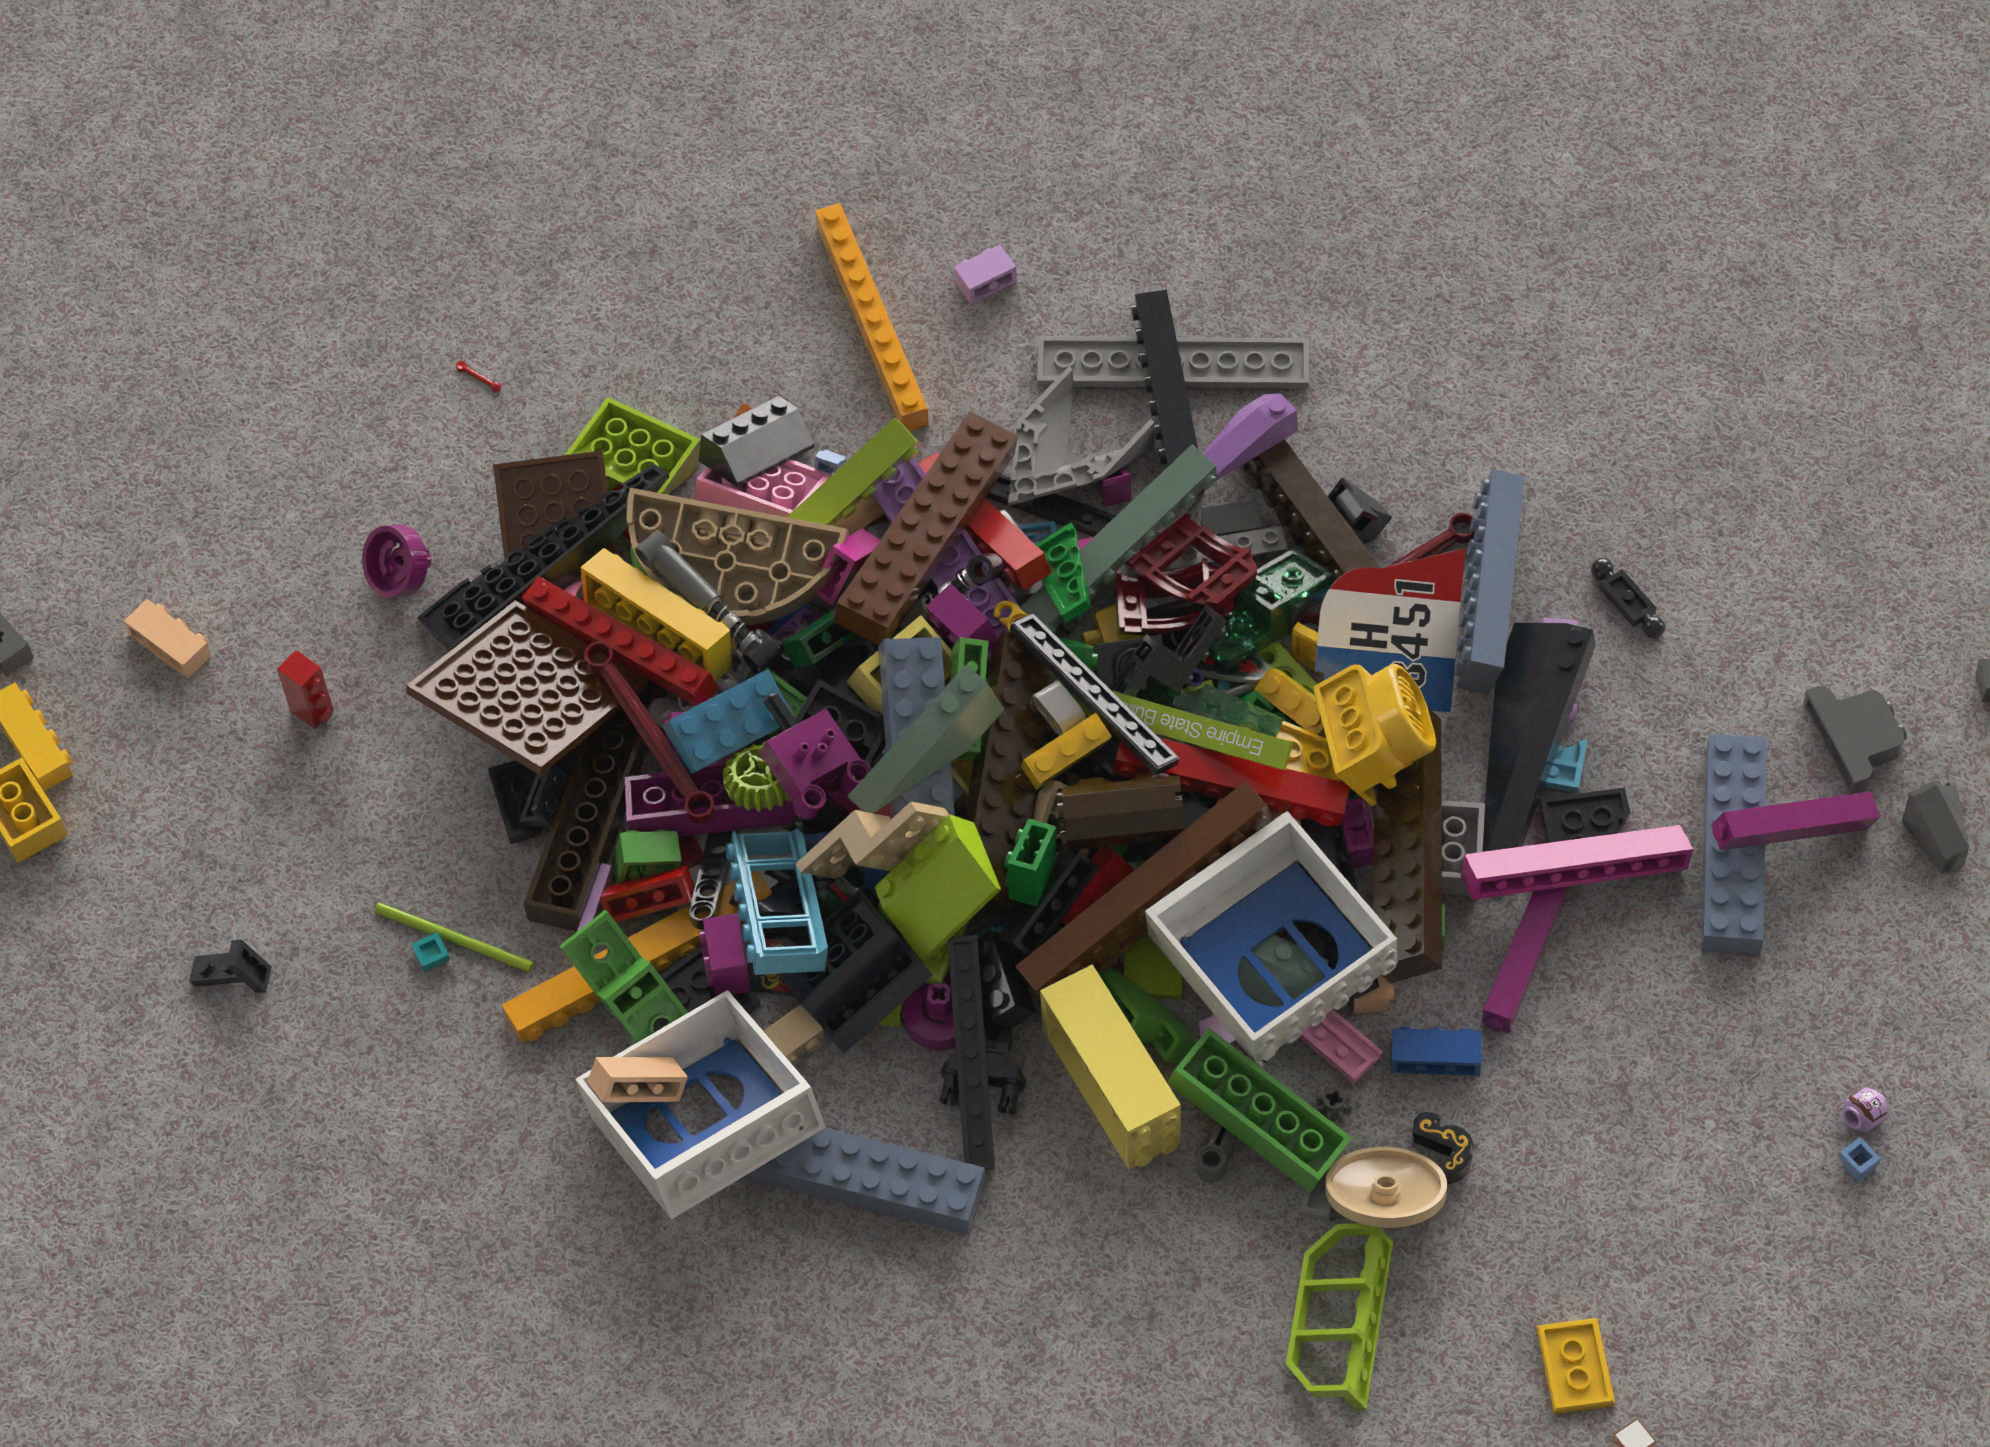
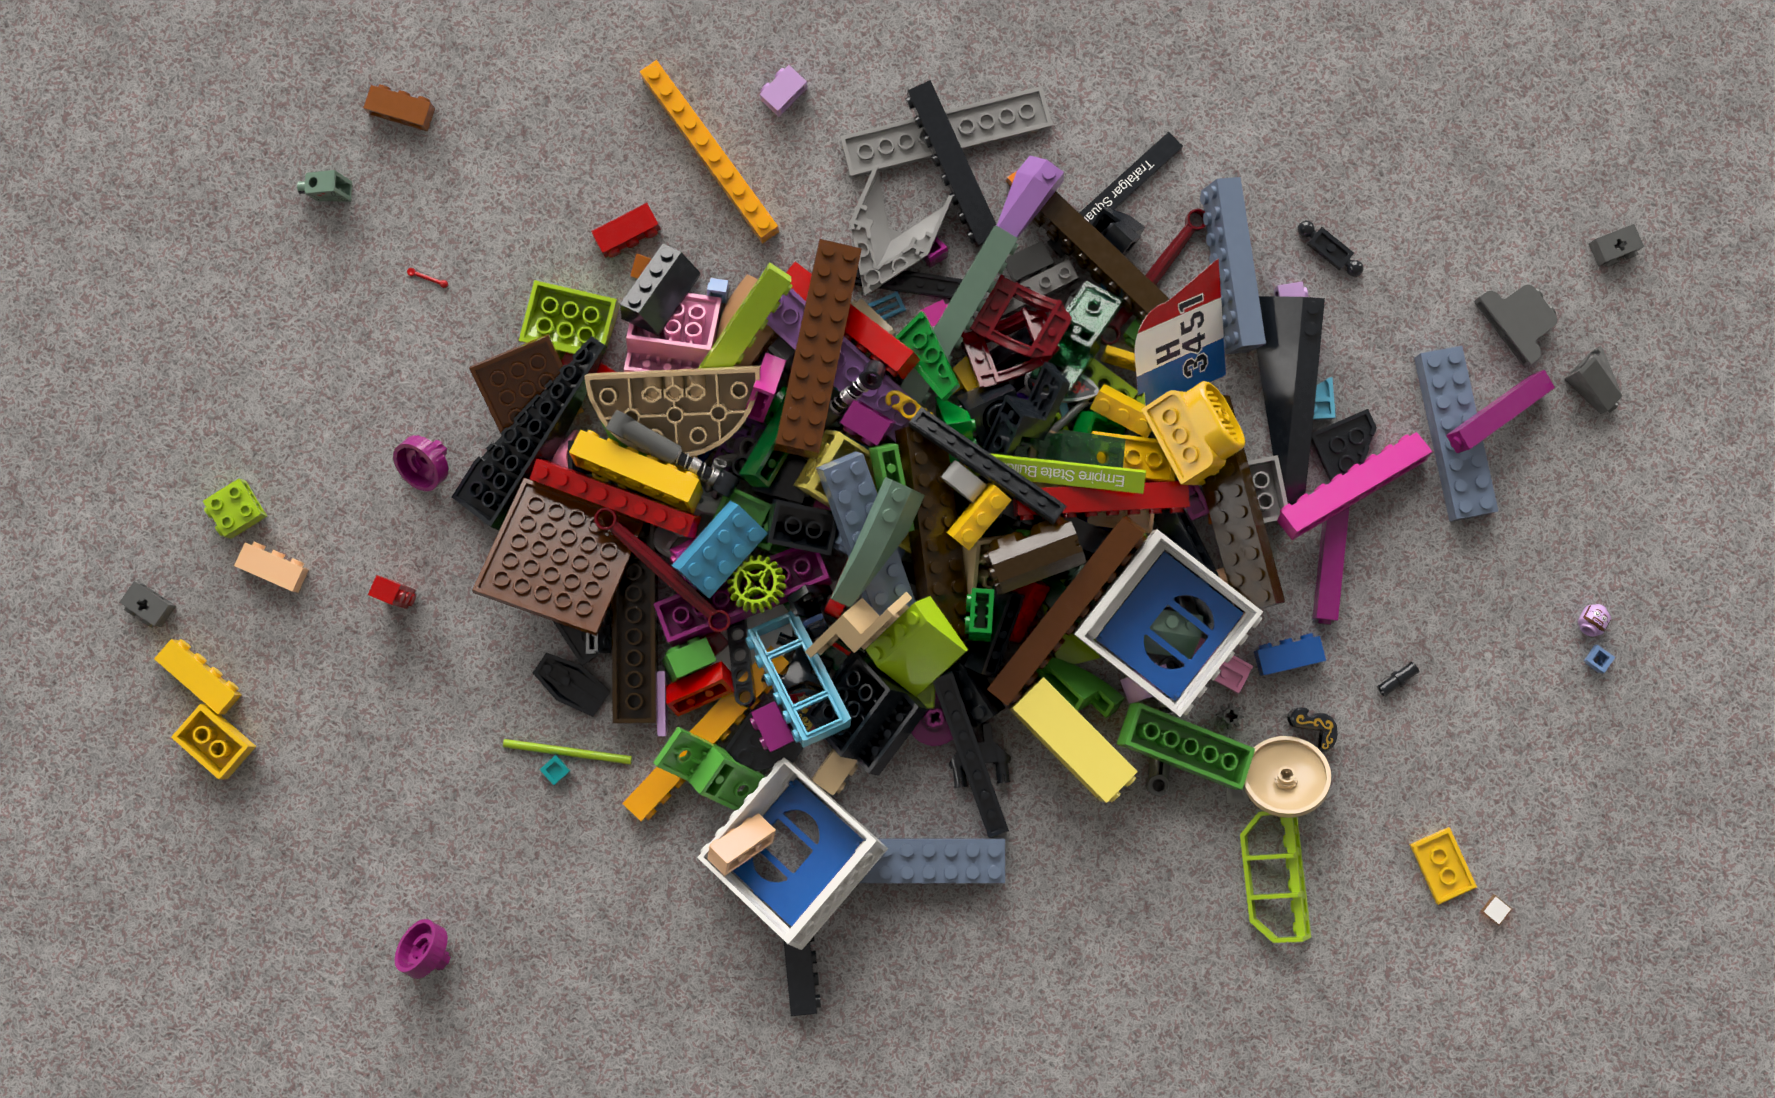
camera: 20 degrees left, 25 degrees up
(148, 563) = (234, 509): none -> lime brick
(185, 1110) = (422, 949): none -> magenta piece
(237, 966) = (415, 825): black bracket -> none
(395, 249) = (326, 186): none -> sand green torso
(488, 859) = (571, 684): none -> black piece
(513, 190) = (399, 107): none -> dark orange brick
(661, 1269) = (802, 979): none -> black brick
(739, 377) = (626, 231): none -> red brick
(808, 756) = (790, 567): magenta piece -> none
(1395, 464) = (1128, 181): none -> black tile
(1576, 1117) = (1398, 679): none -> black pin

